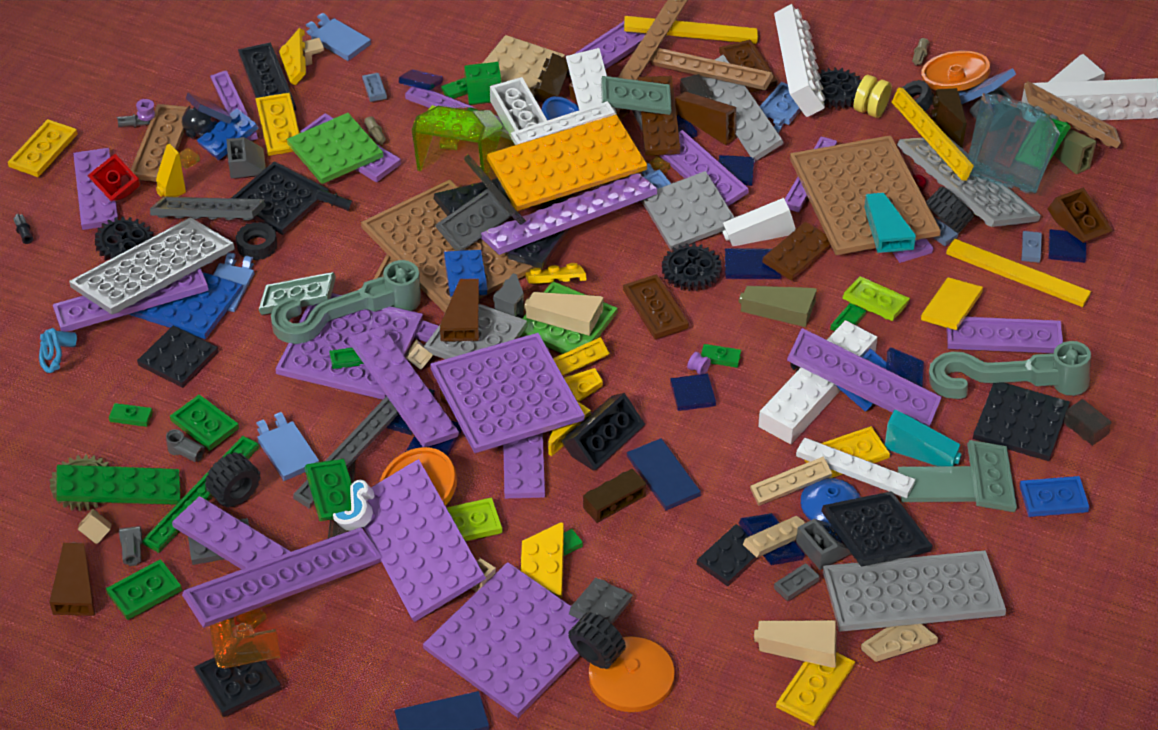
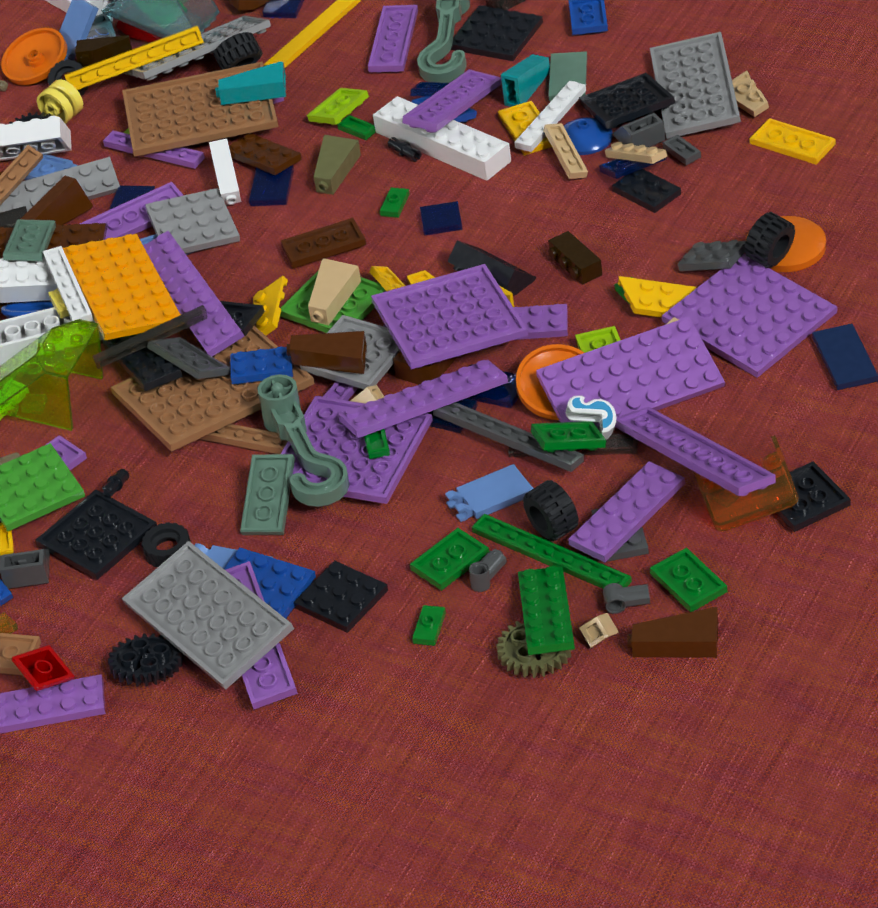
camera: 80 degrees left, 5 degrees down
(23, 229) = (97, 765): black axle -> none
(54, 338) = (309, 695): dark azure piece -> none
(170, 175) = (49, 614): yellow slope -> none
(207, 207) = (110, 582): dark grey plate -> none
(510, 298) = (308, 321): dark grey slope -> none
(663, 474) = (535, 235): dark blue tile -> none
(691, 267) = (272, 220): black gear -> none
(699, 363) = (407, 211): medium lavender wheel -> none
(799, 640) = (753, 139): tan slope -> none
(951, 303) = (352, 62): yellow tile -> none
(991, 476) = (563, 45): sand green tile -> none
(1031, 246) = (283, 24): sand blue plate -> none

